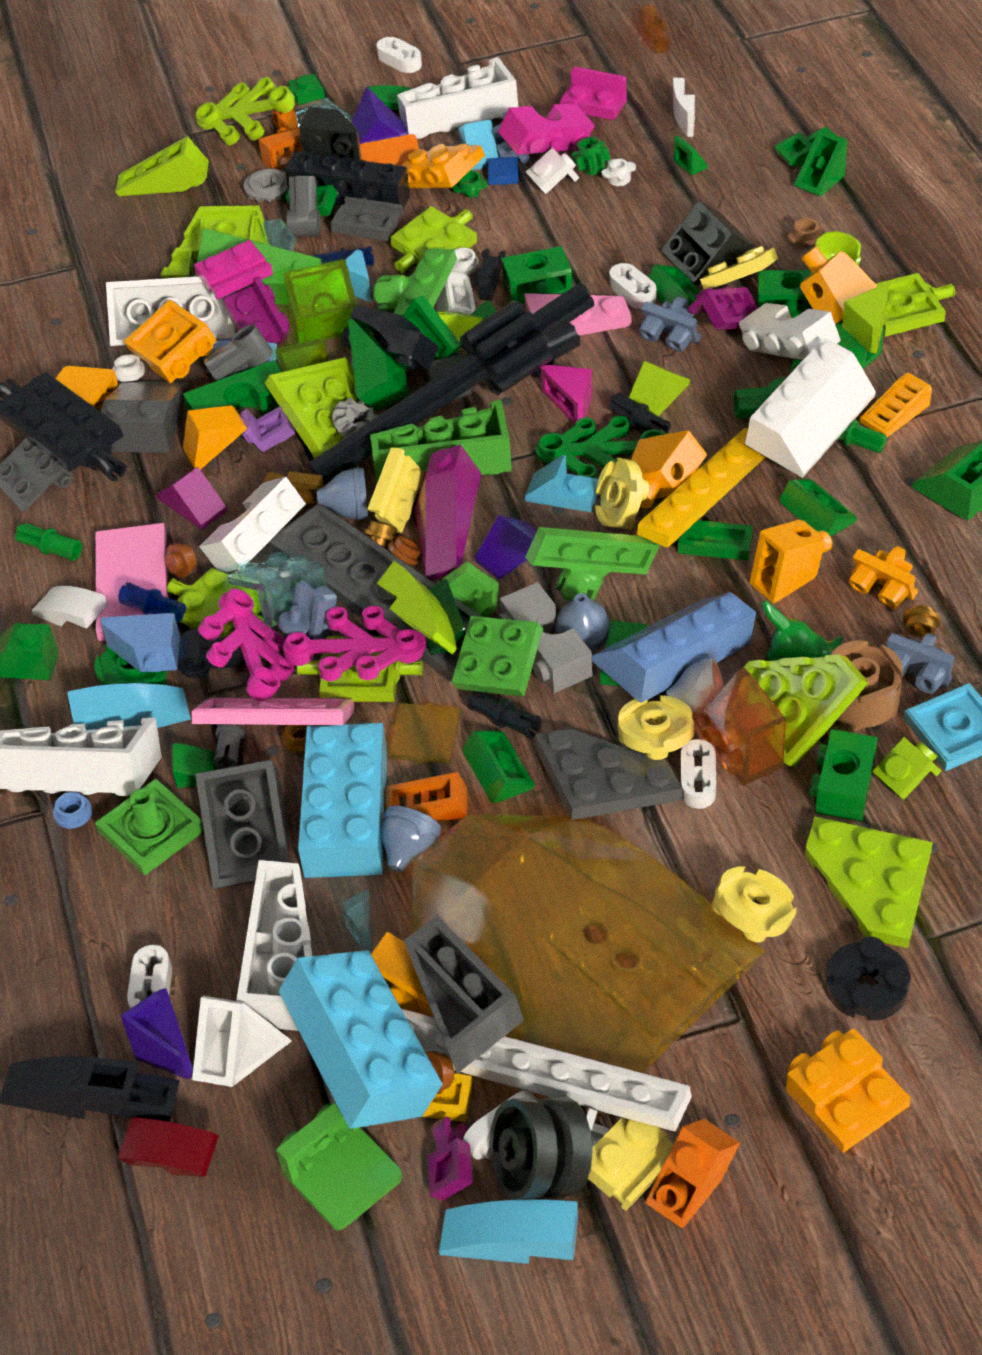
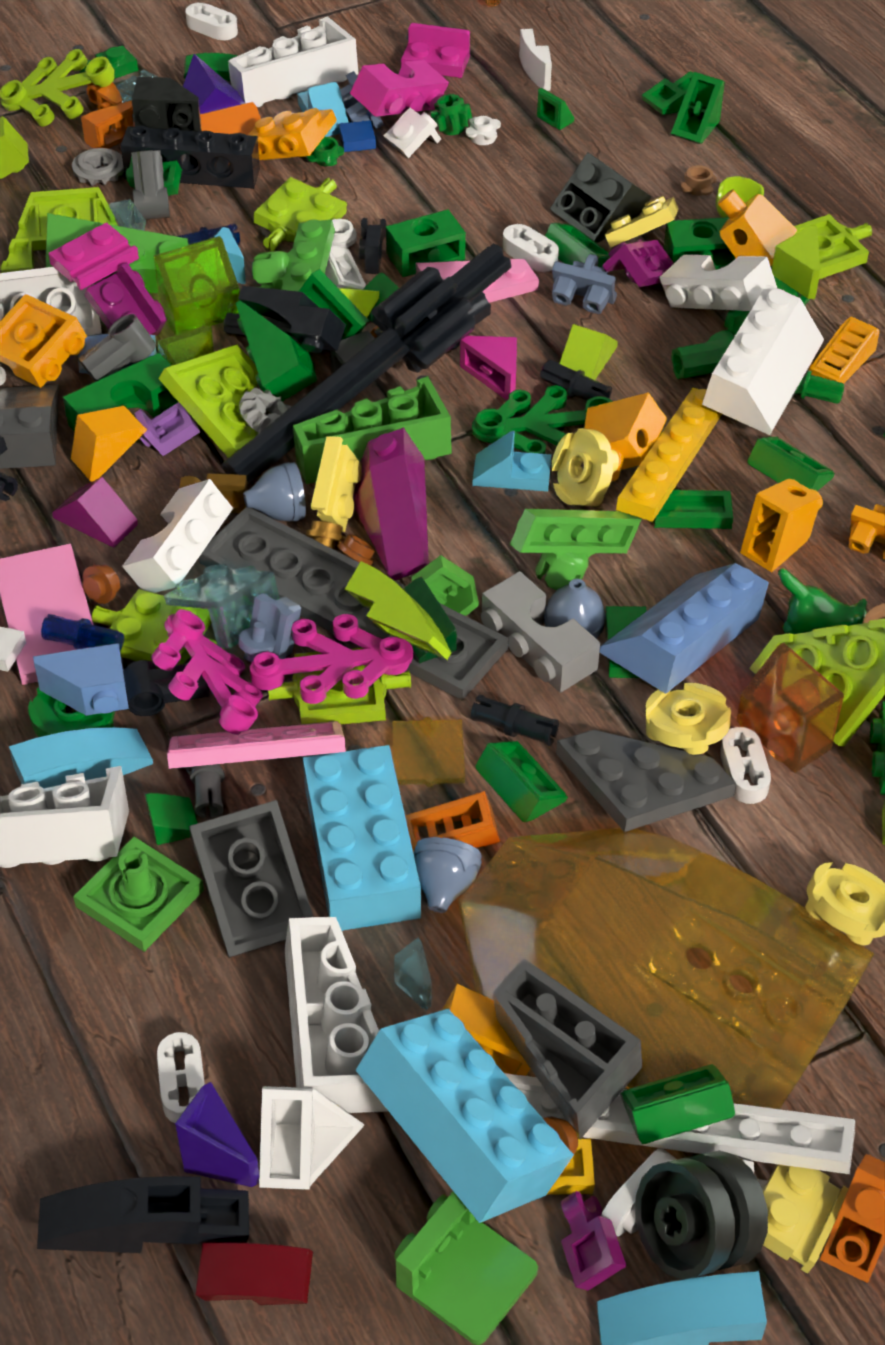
camera: 15 degrees left, 0 degrees up
(72, 810) = (39, 875): medium blue plate -> none
(295, 738) = (281, 777): pearl gold plate -> none
(367, 218) = (221, 195): dark grey plate -> none
(497, 655) = (499, 657): bright green plate -> none
(505, 546) = (473, 535): dark purple slope -> none
(544, 1054) = (678, 1103): none -> green slope
(698, 685) = (724, 669): light grey helmet -> none

